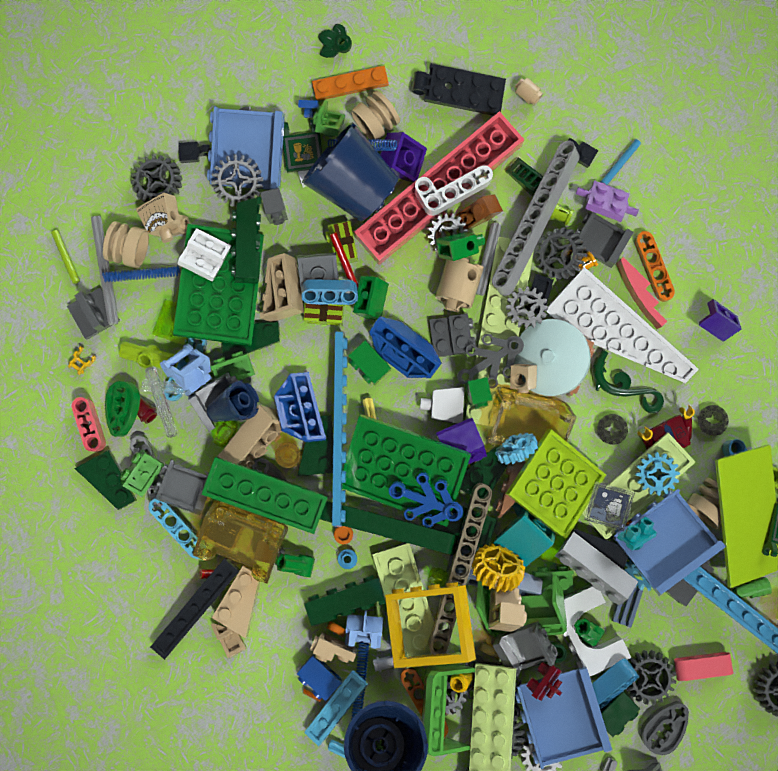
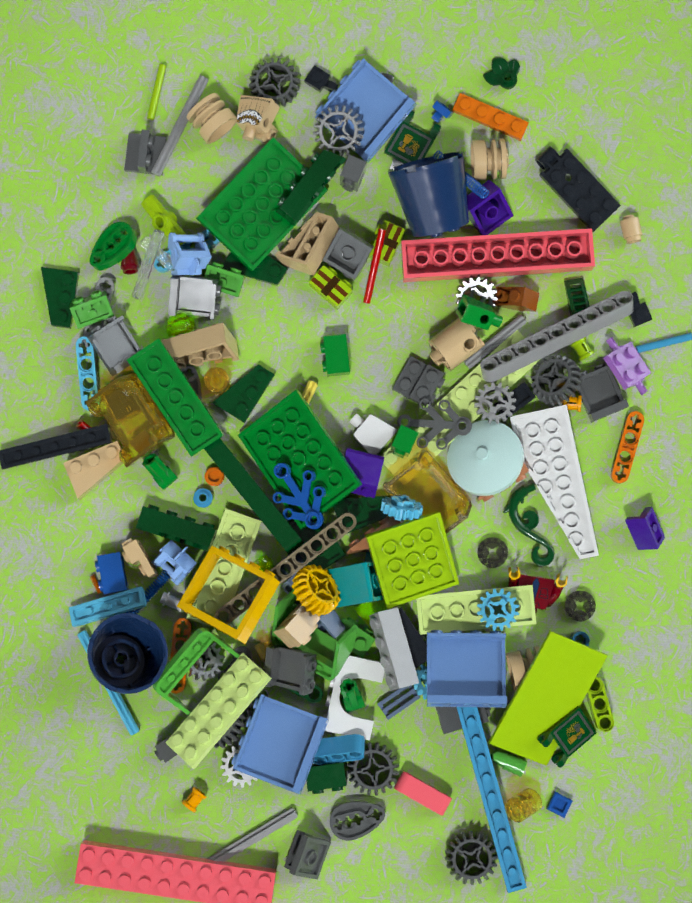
camera: 35 degrees right, 0 degrees up
(76, 357) = (99, 182): yellow piece -> none
(94, 427) = (84, 235): coral beam -> none
(154, 273) = (200, 146): blue piece -> none
(165, 323) = (197, 203): clear neon green wing -> none
(204, 254) = (267, 172): white slope -> none
(230, 640) = (63, 492): tan slope -> none
(234, 403) = (204, 307): dark blue cone -> none
(298, 408) = (252, 349): blue wedge -> none
(321, 296) = (349, 282): dark azure beam -> none
(328, 122) = (447, 135): bright green bracket -> none
(336, 628) = (153, 545): orange tile -> none
(340, 437) = (268, 394): dark azure plate -> none
(371, 297) = (376, 303): green brick -> none
(404, 349) = (372, 363): blue wedge -> none
(454, 187) = (508, 263): white beam -> none
(461, 682) = (221, 657): yellow cone -> none
(530, 374) = (452, 450): tan brick -> none
(547, 685) = (286, 709): dark red hips -> none
(609, 506) = (441, 608): clear tile -> none
(637, 287) = (599, 453): coral slope -> none
(638, 534) = (443, 644): teal hips -> none

